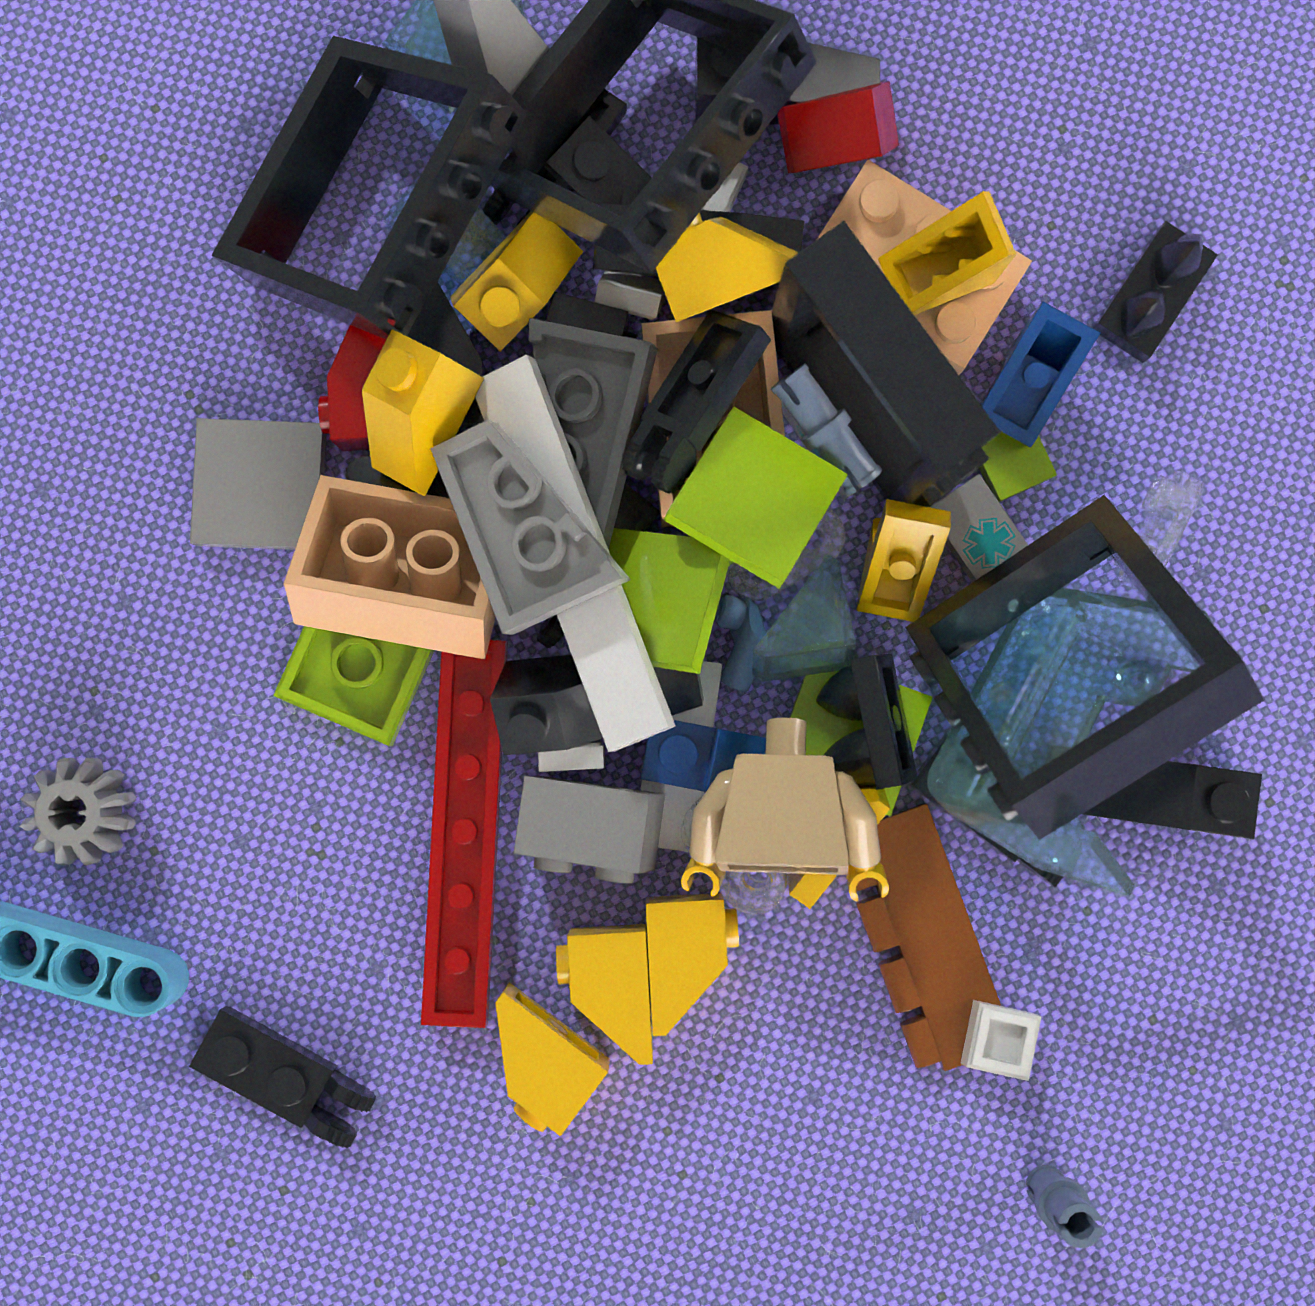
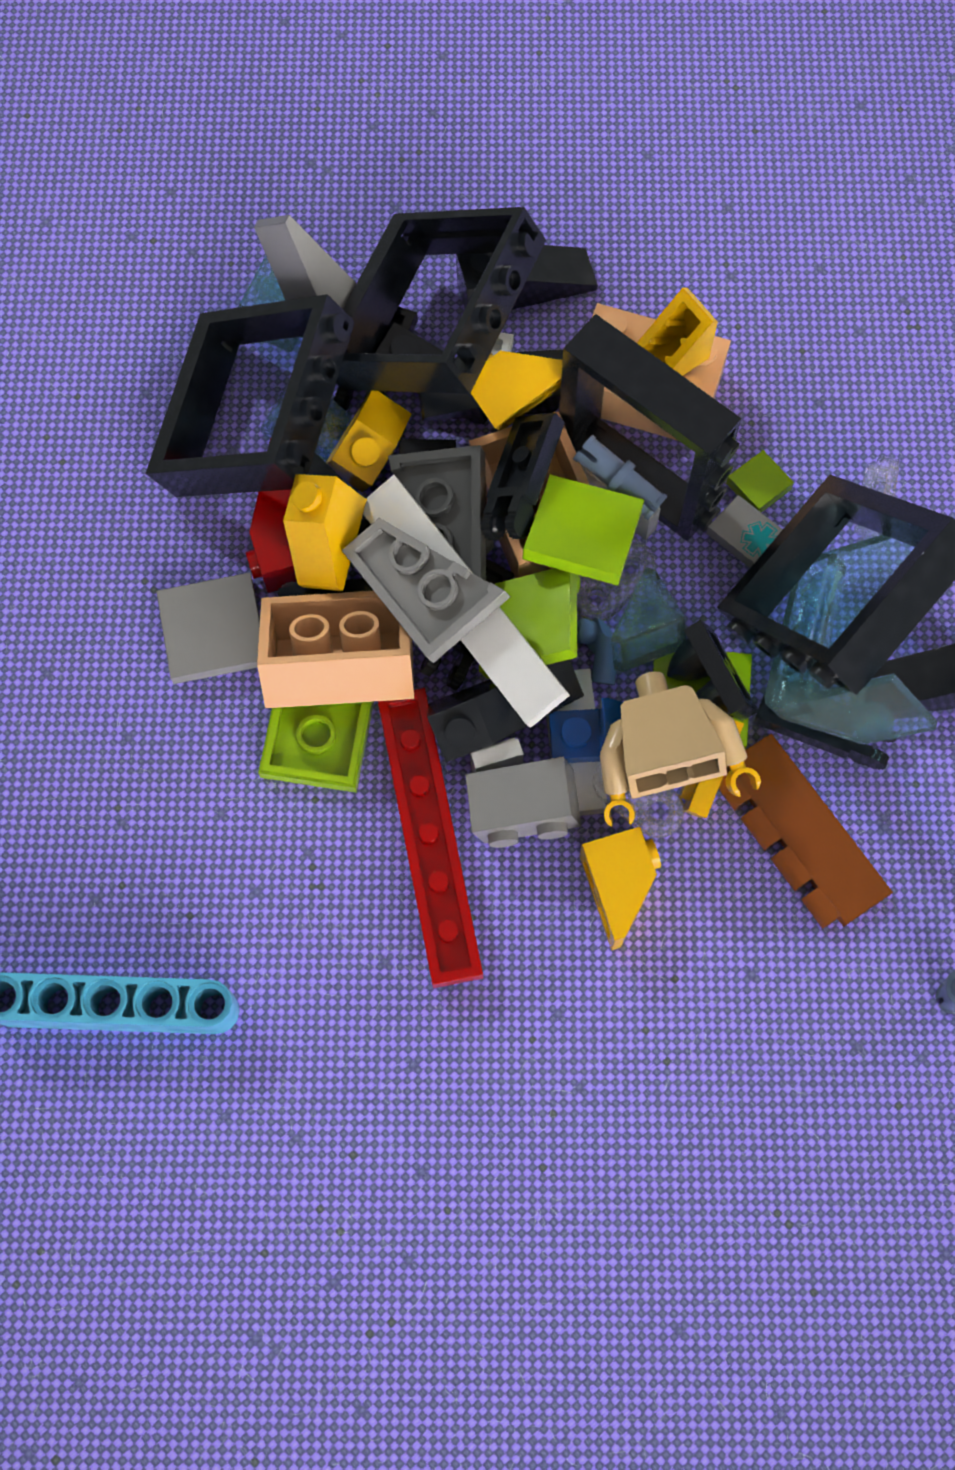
camera: 10 degrees left, 15 degrees down
(55, 807) = (126, 909): light grey gear -> none
(279, 1075) = (327, 1058): black hinge -> none
(545, 1063) = (536, 990): yellow slope -> none
(611, 983) = (572, 917): yellow slope -> none
(631, 292) = (454, 431): white tile -> none
(839, 128) = (569, 291): red slope -> none
(902, 559) = (700, 561): yellow slope -> none
(1000, 1040) = (880, 889): white tile -> none
(1037, 372) = (761, 408): blue slope -> none
(1155, 291) = (824, 349): black tile -> none

